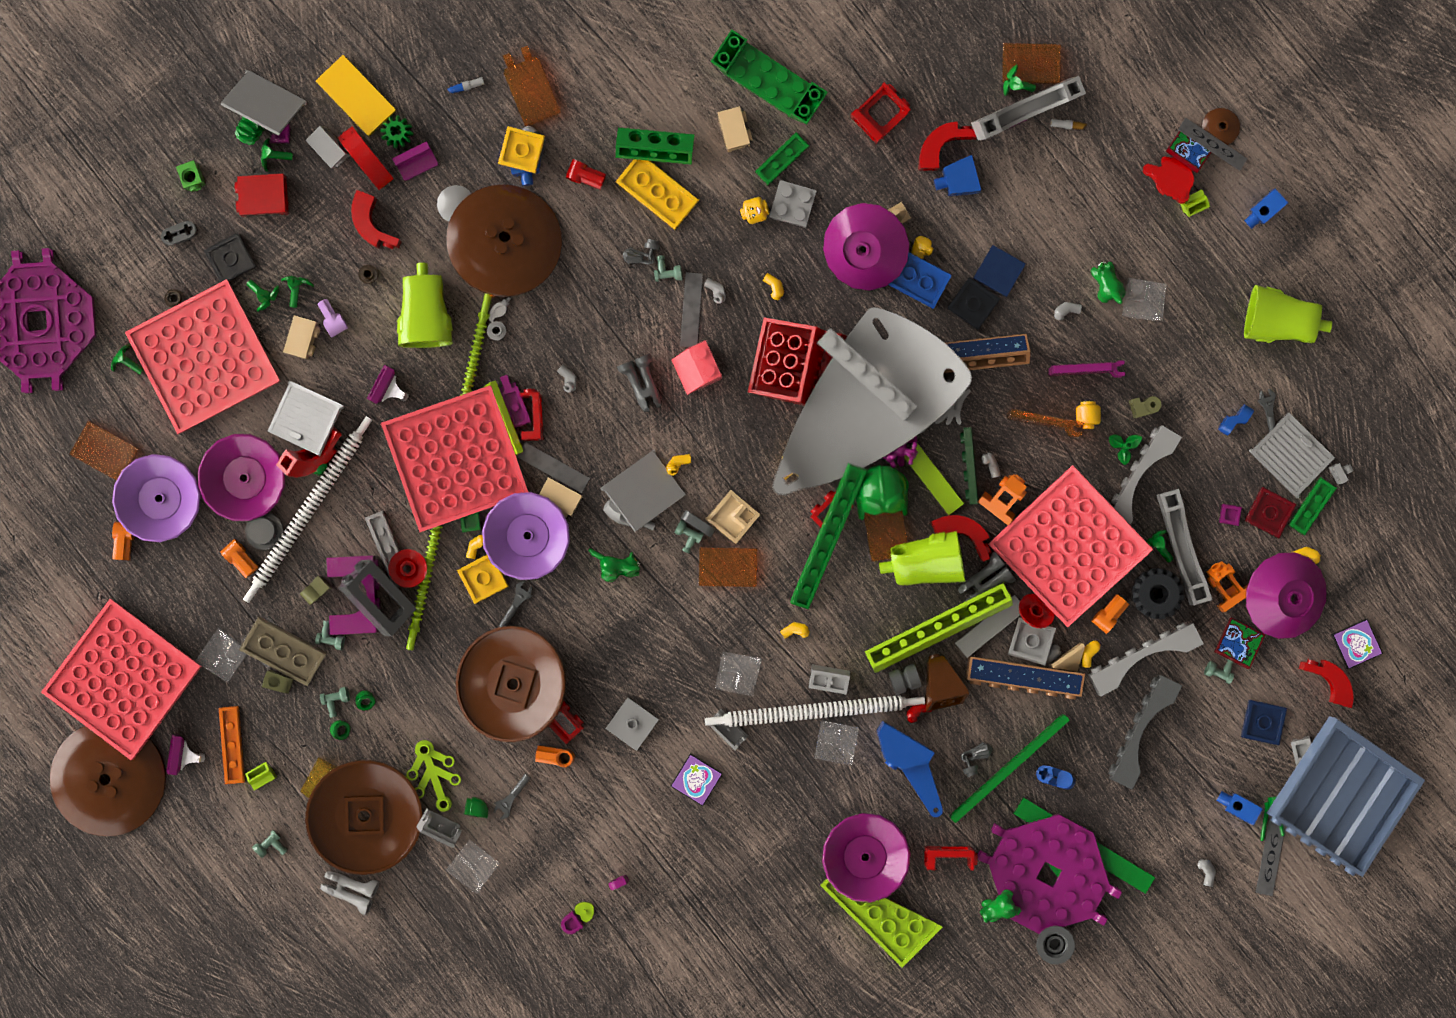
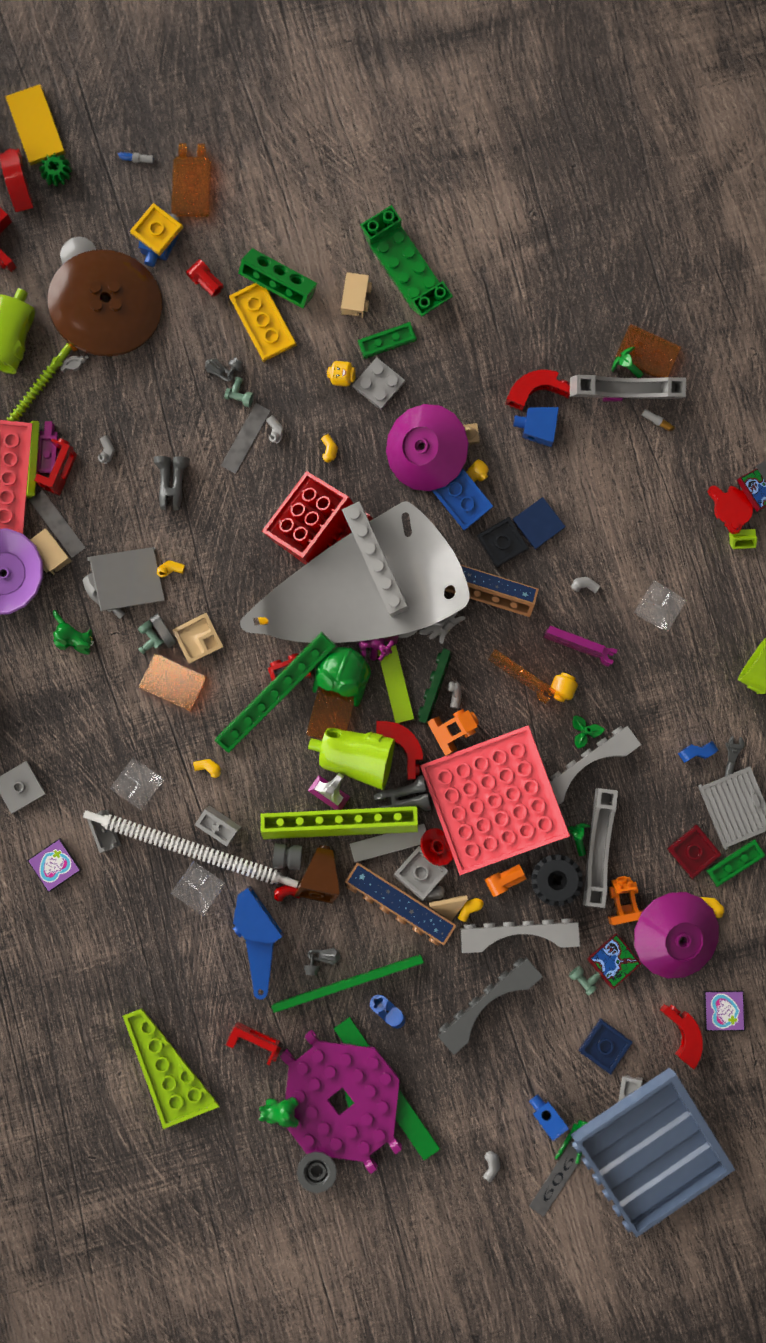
camera: 20 degrees right, 5 degrees down
(415, 161) = (60, 201): magenta panel -> none
(500, 335) = (62, 385): light grey plate -> none
(696, 367) = (226, 488): coral slope -> none
(868, 124) = (477, 341): red window -> none
(886, 862) = (154, 1013): magenta dish -> none
(916, 604) = (330, 792): none -> piece
(1109, 285) = (633, 576): green animal -> none
(1148, 406) = (618, 704): olive leg -> none
(1230, 514) = (656, 837): magenta tile -> none

